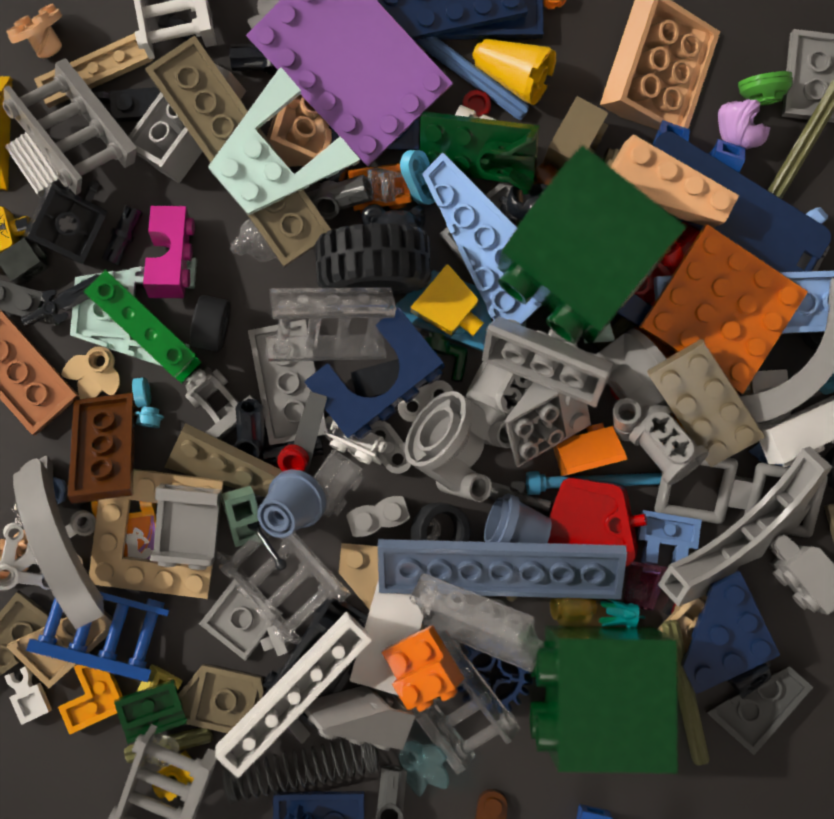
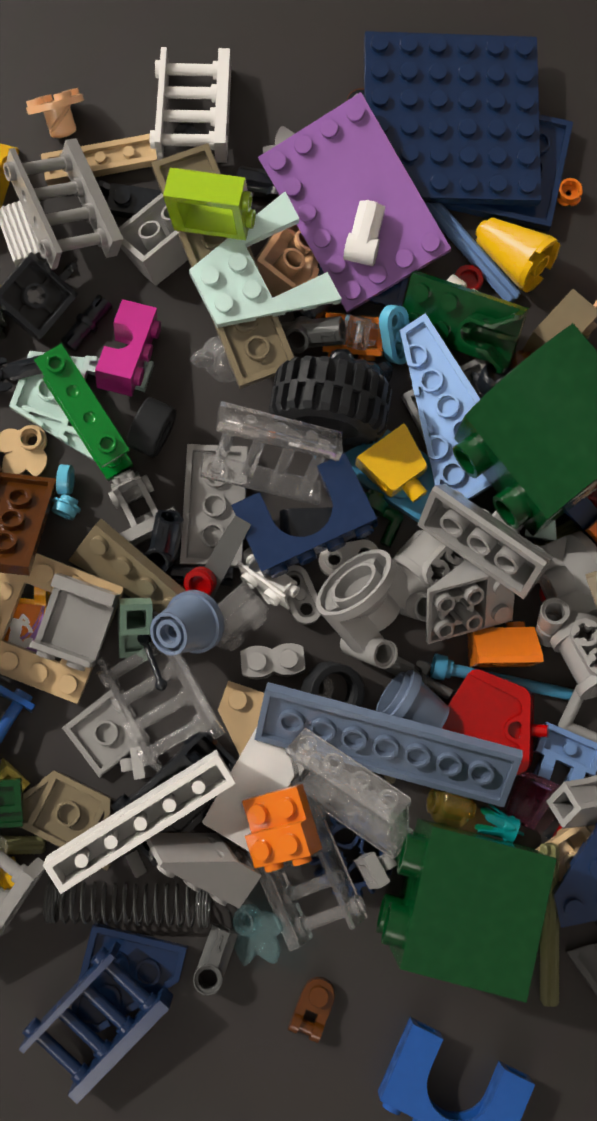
camera: 10 degrees right, 5 degrees down
(211, 100) = (209, 203): none -> lime window
(367, 93) = (363, 241): none -> white piece
(516, 684) = (374, 869): none -> light grey tile

